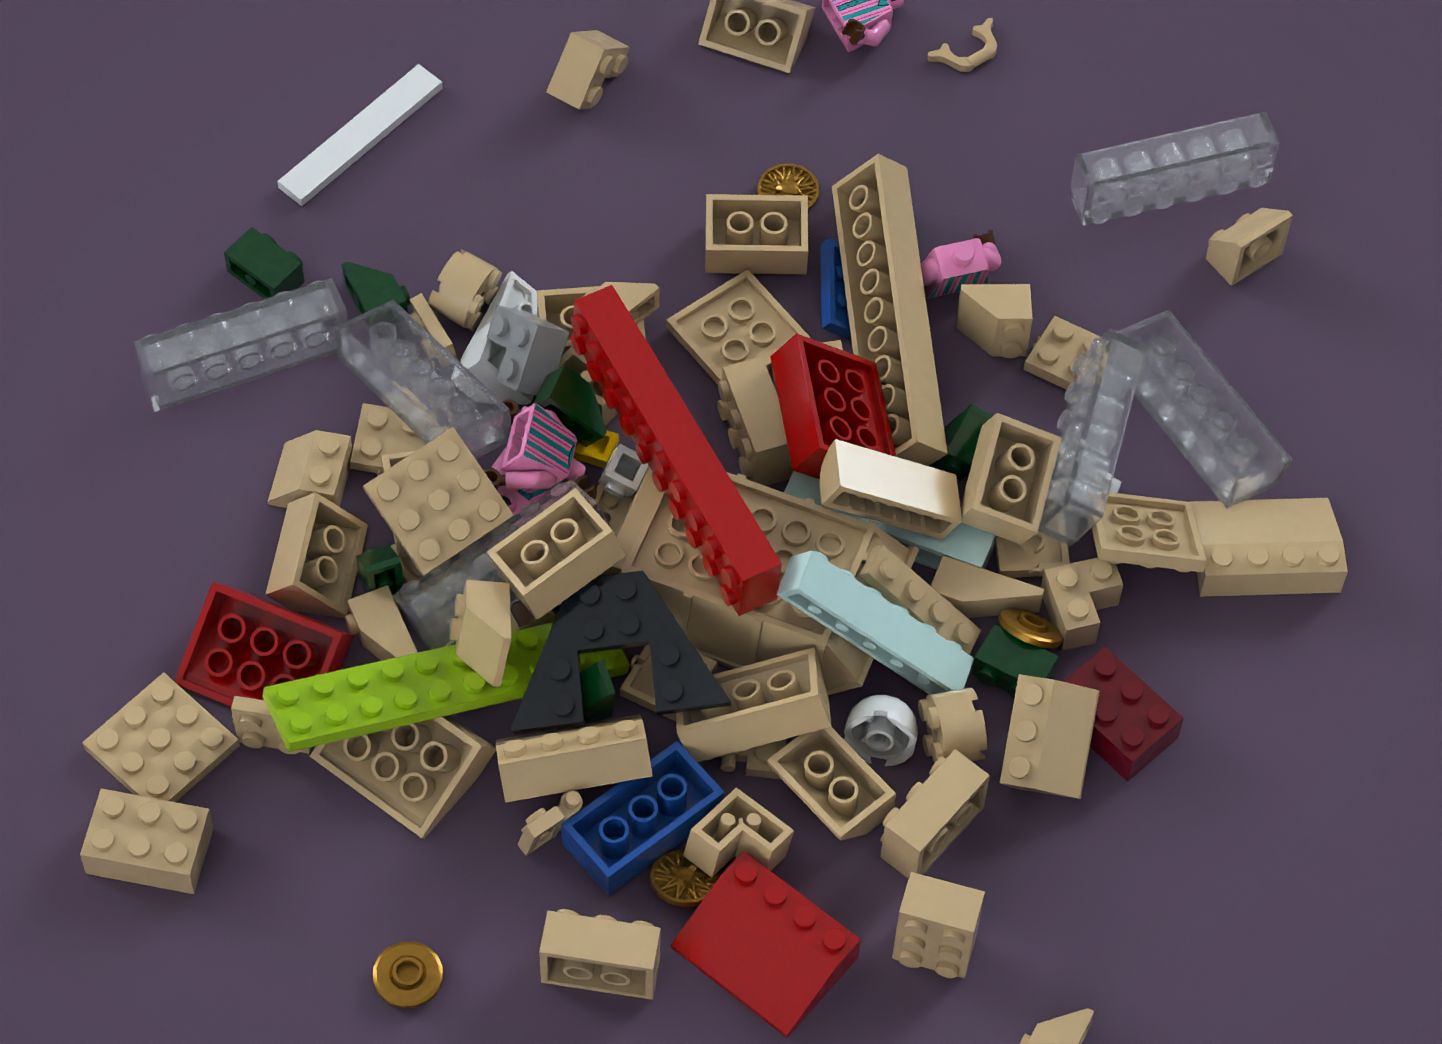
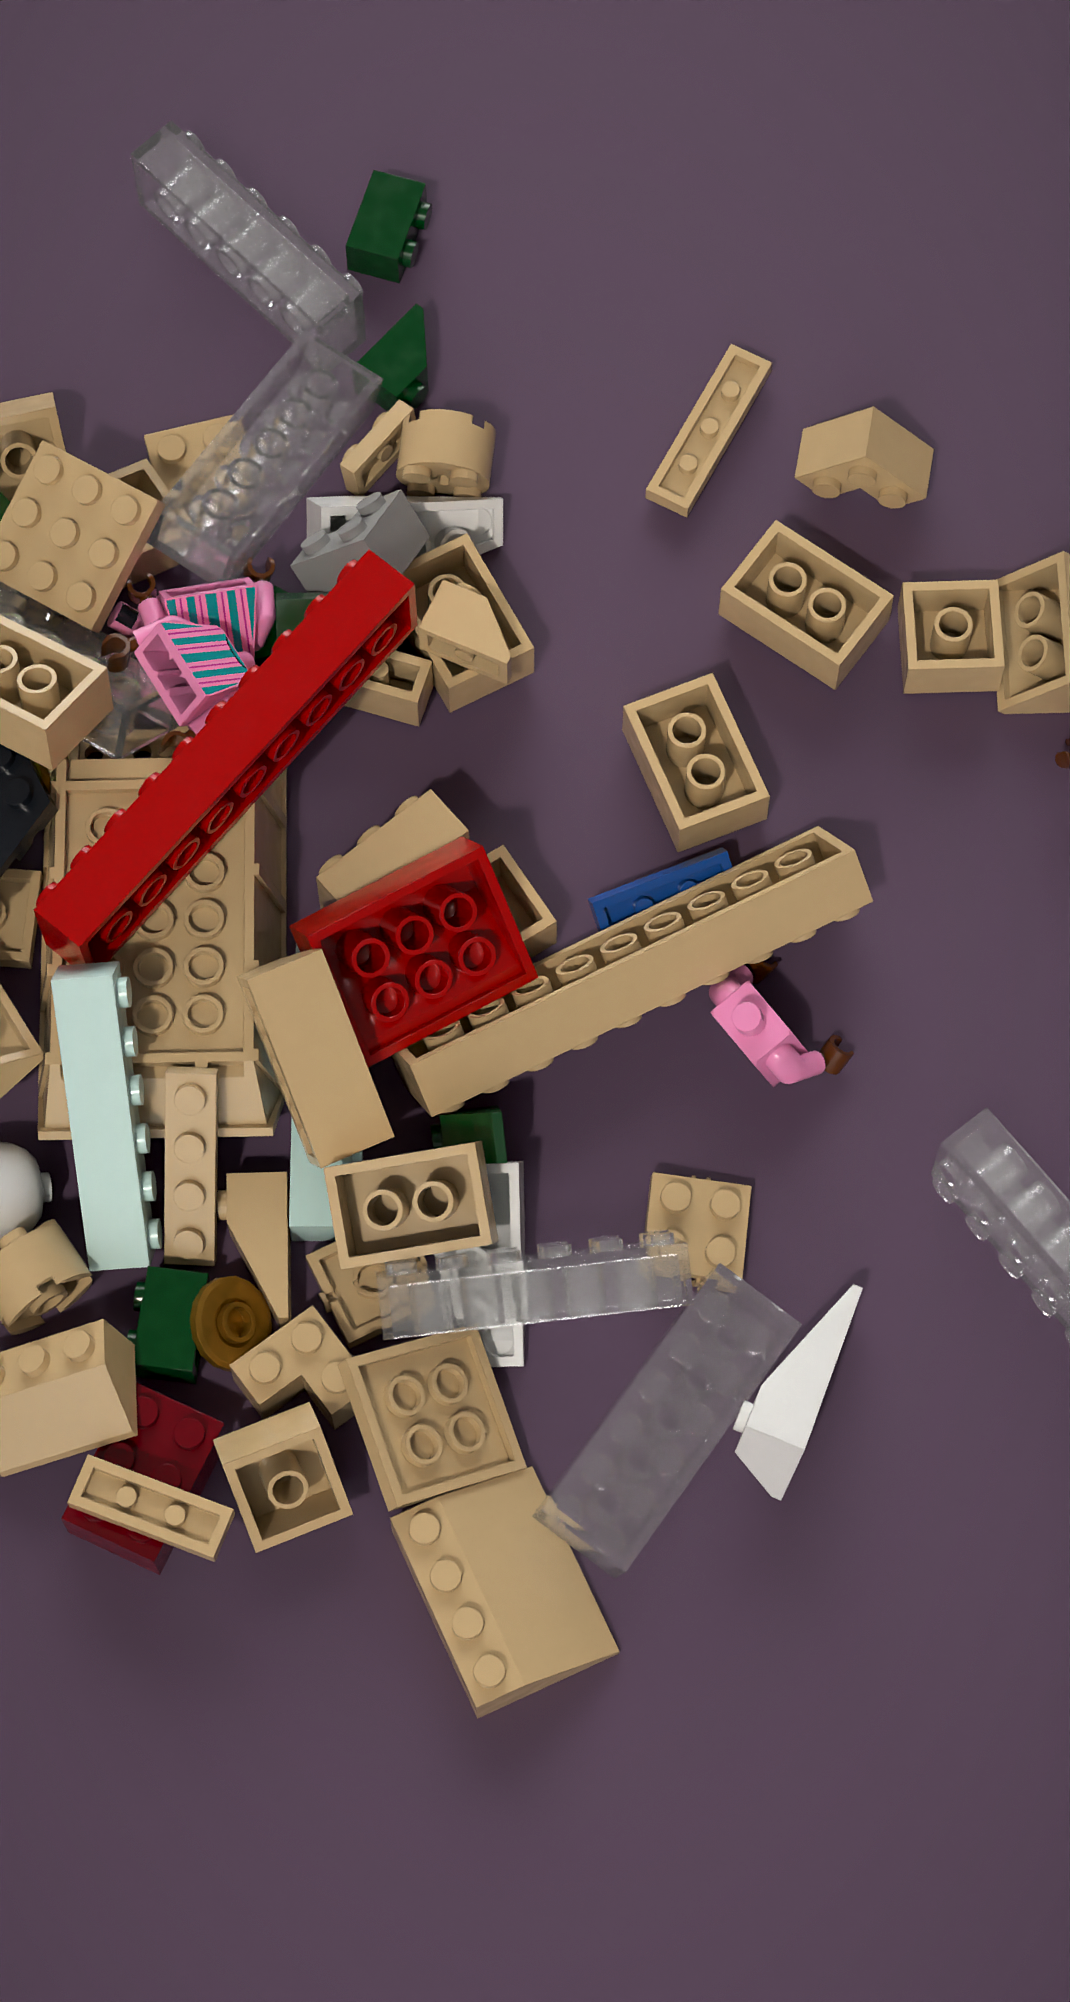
camera: 70 degrees right, 10 degrees up
(311, 465) = (112, 406): tan slope -> none
(359, 135) = (645, 251): white tile -> none
(515, 146) = (708, 430): none -> tan plate
(588, 456) = (186, 663): none -> bright pink torso
(674, 135) = (805, 604): none -> tan brick
(733, 325) = (544, 800): tan plate -> none
(734, 69) = (950, 636): none -> tan brick
(789, 180) = (802, 779): pearl gold wheel -> none
(996, 317) = (695, 1113): tan slope -> none
(1153, 627) = (283, 1477): none -> tan brick
(1154, 697) = (151, 1508): none -> tan plate
(1222, 335) = (789, 1400): none -> white wedge
(1249, 243) = (985, 1399): tan slope -> none

